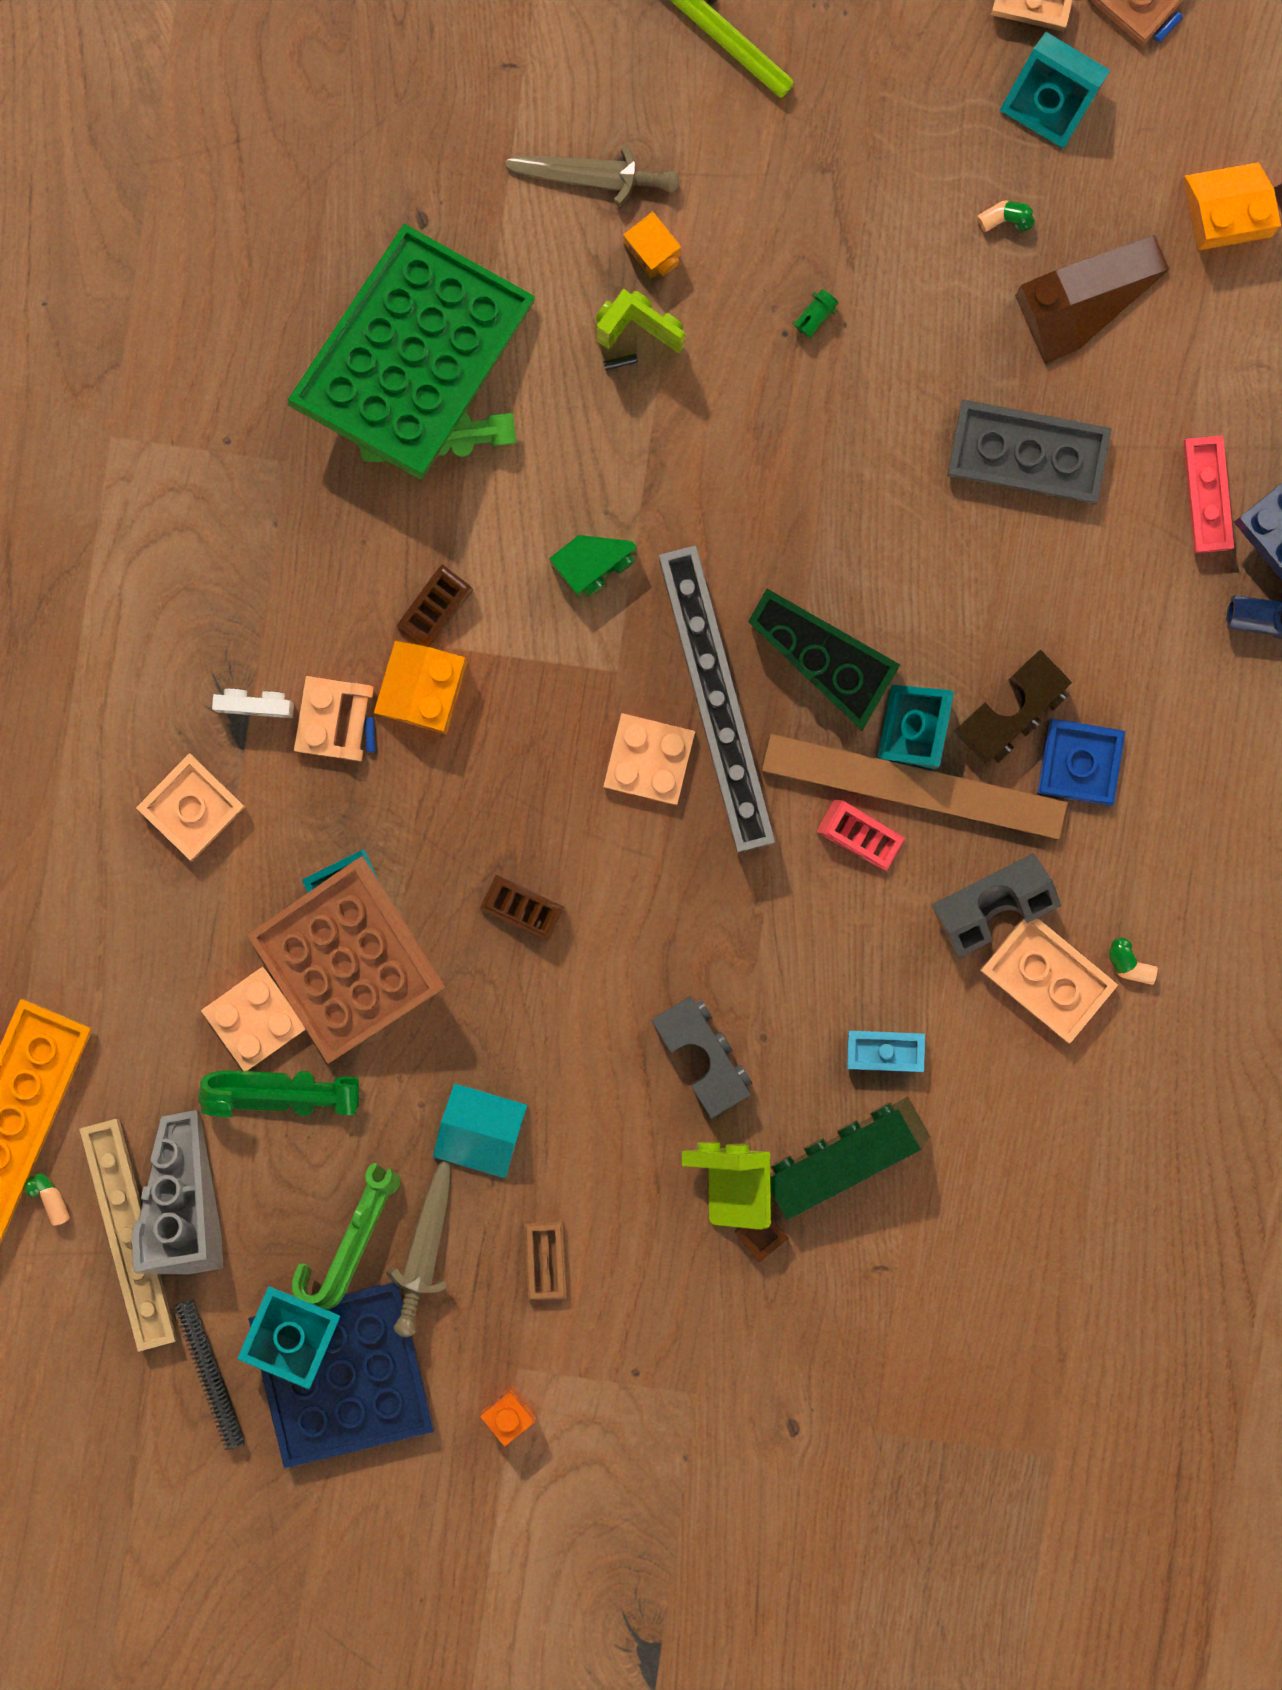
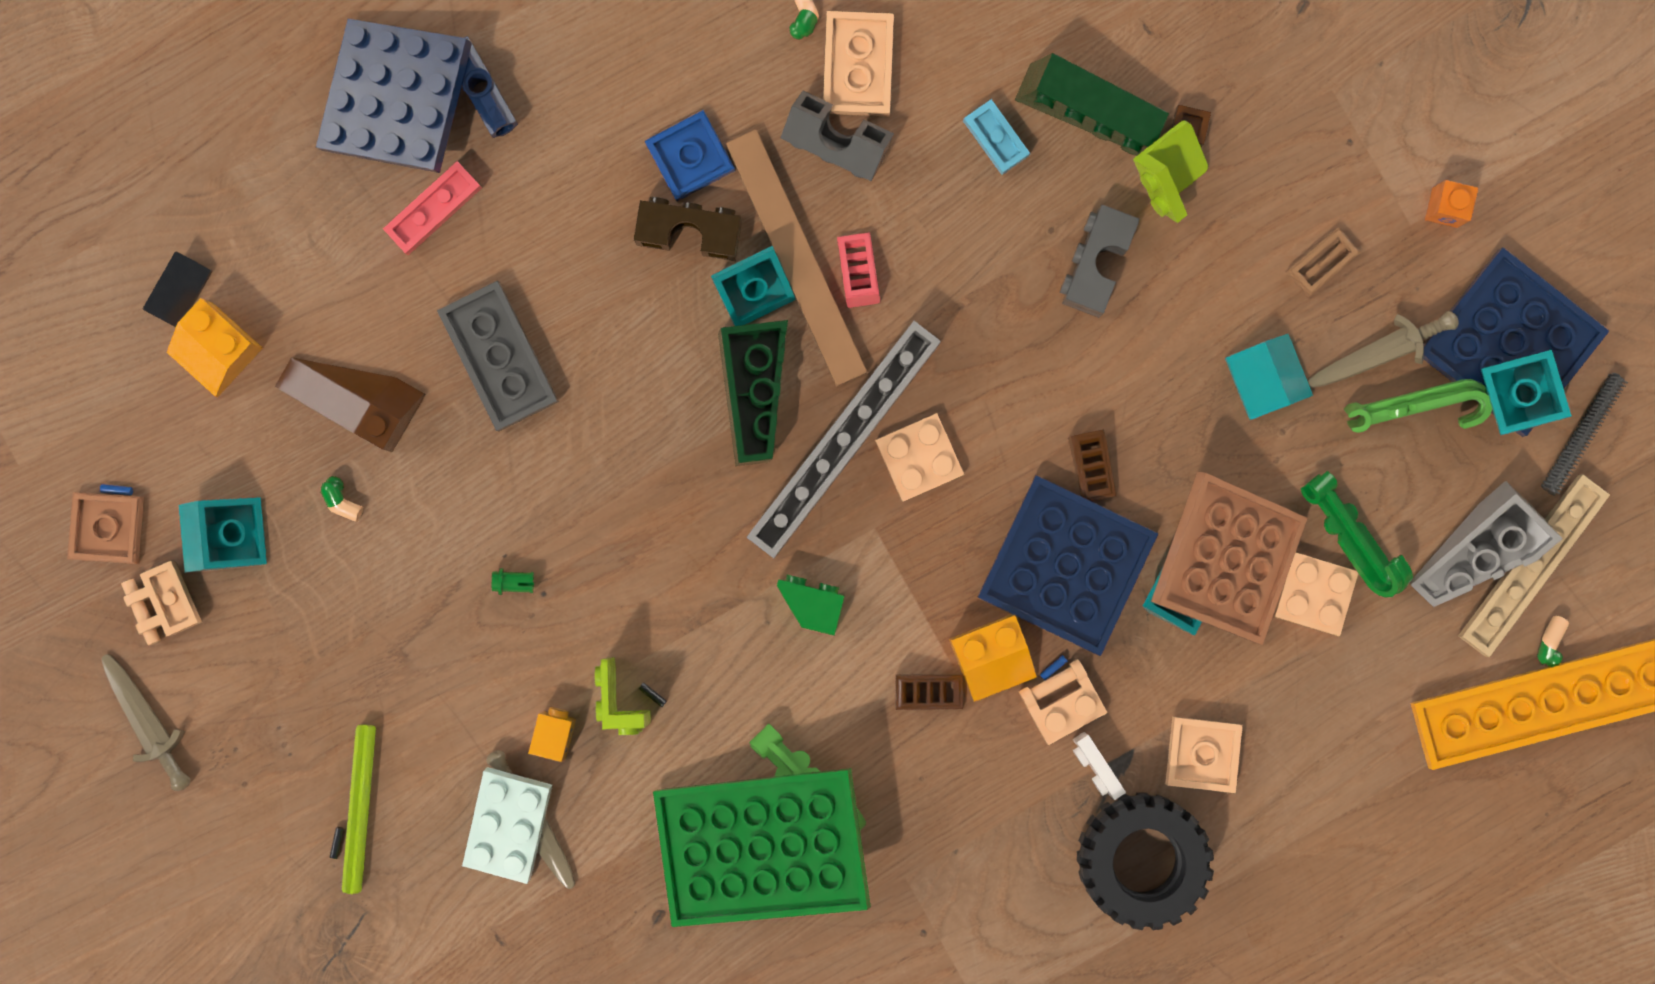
camera: 130 degrees left, 0 degrees up
(98, 650) = (1180, 889): none -> black tyre
(451, 816) = (1067, 565): none -> dark blue plate
(604, 146) = (507, 825): none -> light aqua plate

